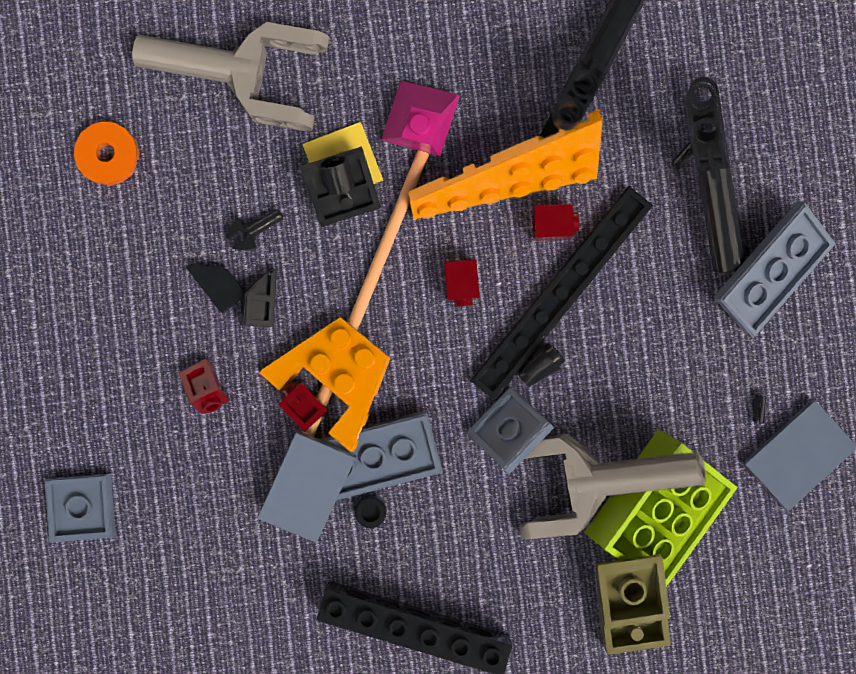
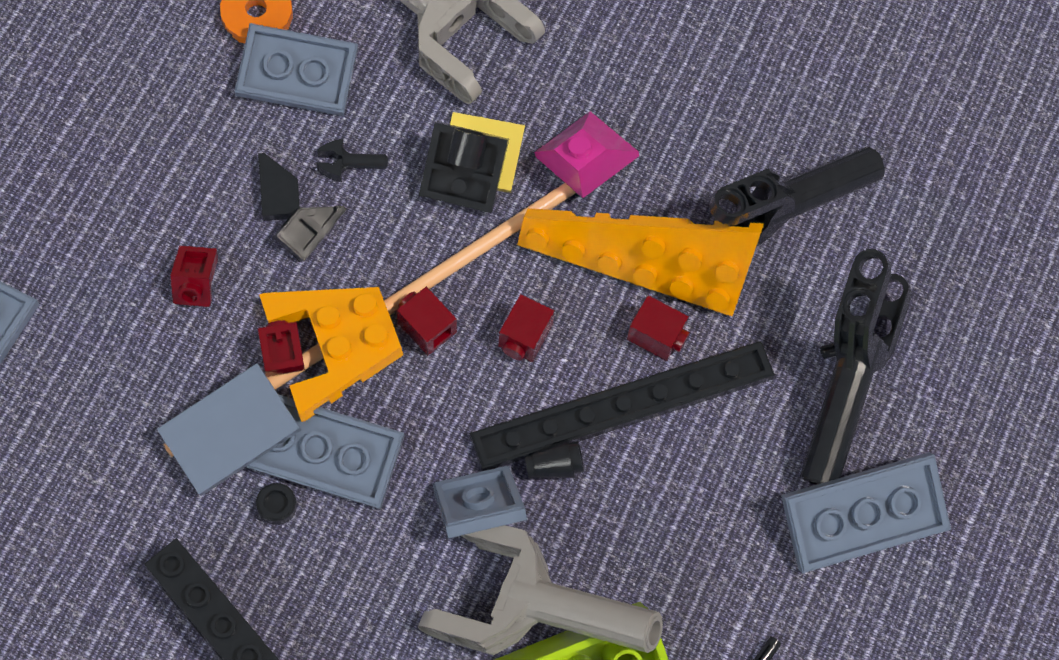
camera: 30 degrees right, 20 degrees down
(168, 183) = (296, 69): none -> sand blue tile
(387, 318) = (426, 320): none -> dark red brick

